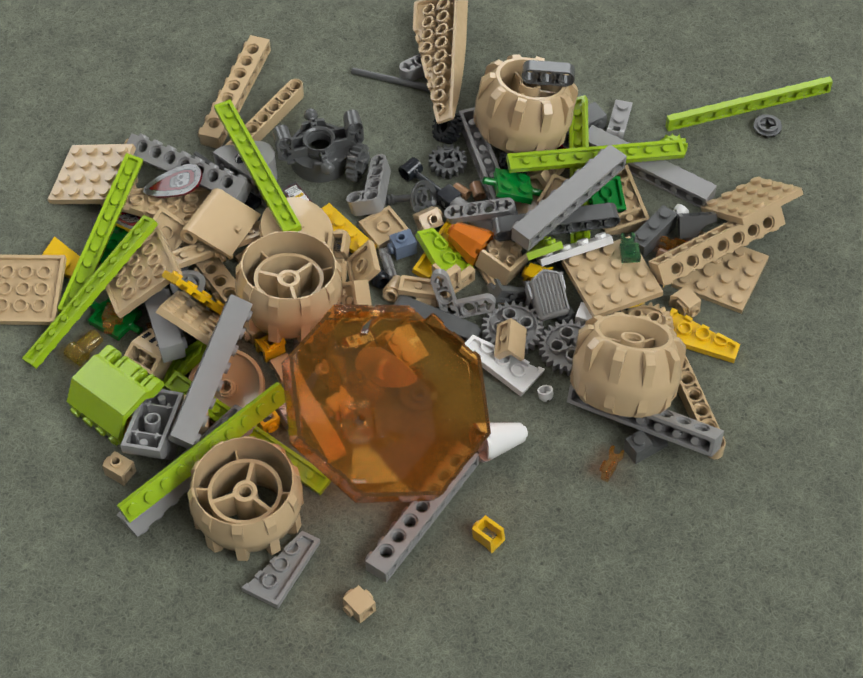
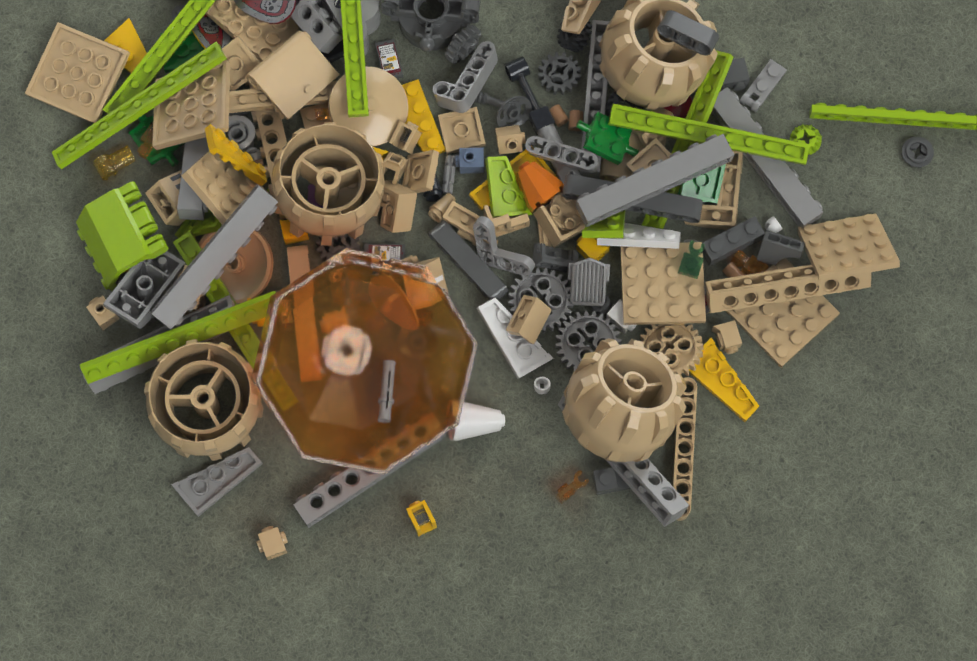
camera: 20 degrees right, 20 degrees up
(413, 445) = (385, 400): none -> light grey pin

